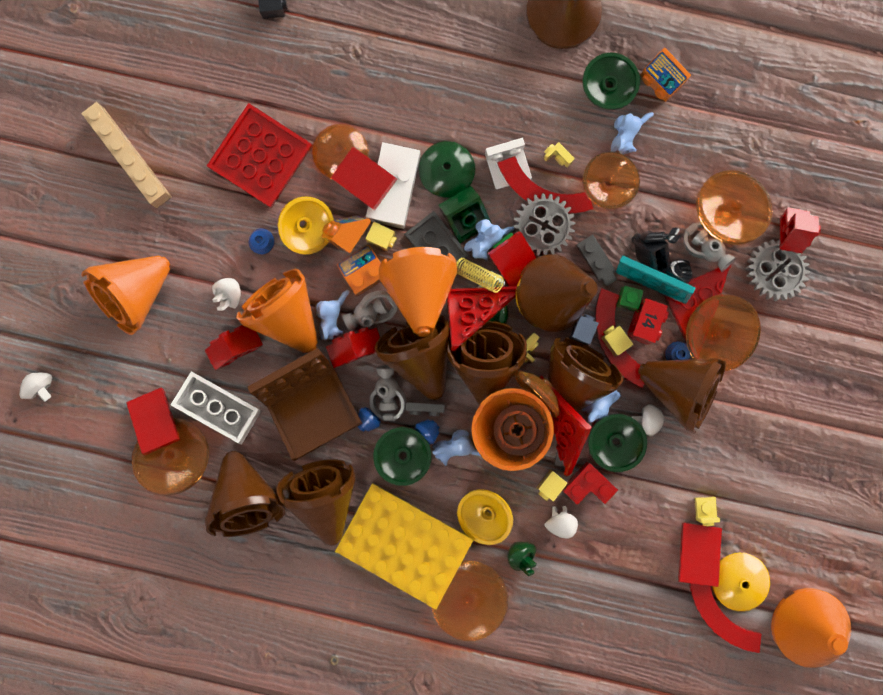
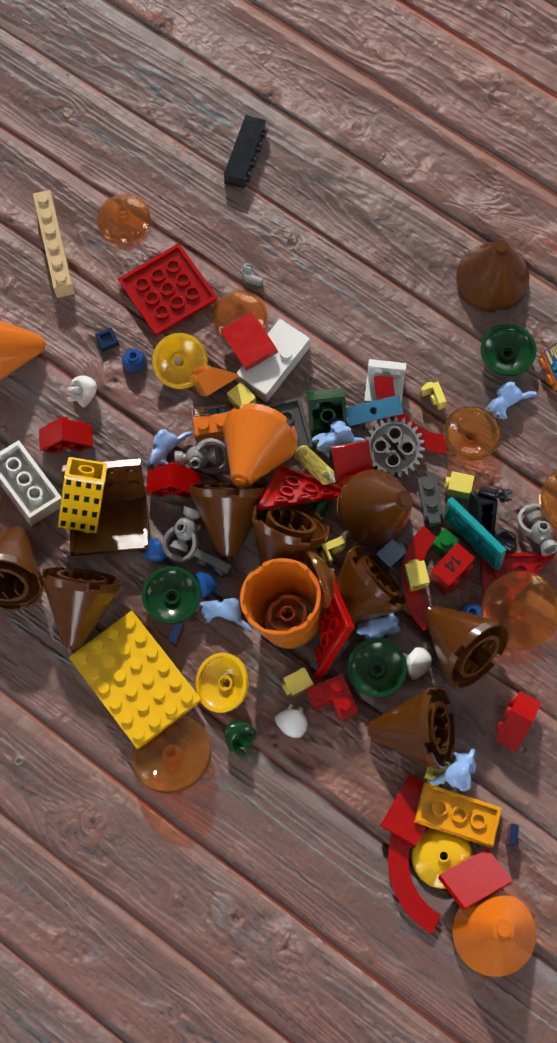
camera: 25 degrees right, 15 degrees down
(187, 108) = (125, 226): none -> clear orange dish
(225, 230) = (107, 339): none -> dark blue tile
(279, 405) = (82, 495): none -> yellow slope
(282, 312) = (124, 424): orange cone -> none
(329, 106) = (249, 277): none -> light grey arm
(422, 489) = (176, 634): none -> dark blue tile
(445, 182) = (322, 376): dark green dish -> none
(520, 190) = (365, 412): none -> dark azure tile
(618, 235) = (459, 485): none -> light yellow brick
(678, 485) = (419, 728): none -> reddish brown cone
(730, 506) = (459, 772): none -> light blue animal
(741, 542) = (458, 815): none -> light orange tile
(762, 436) = (518, 720): none -> red brick
(781, 594) = (475, 879): none -> tile
(795, 538) = (512, 835): none -> dark blue tile

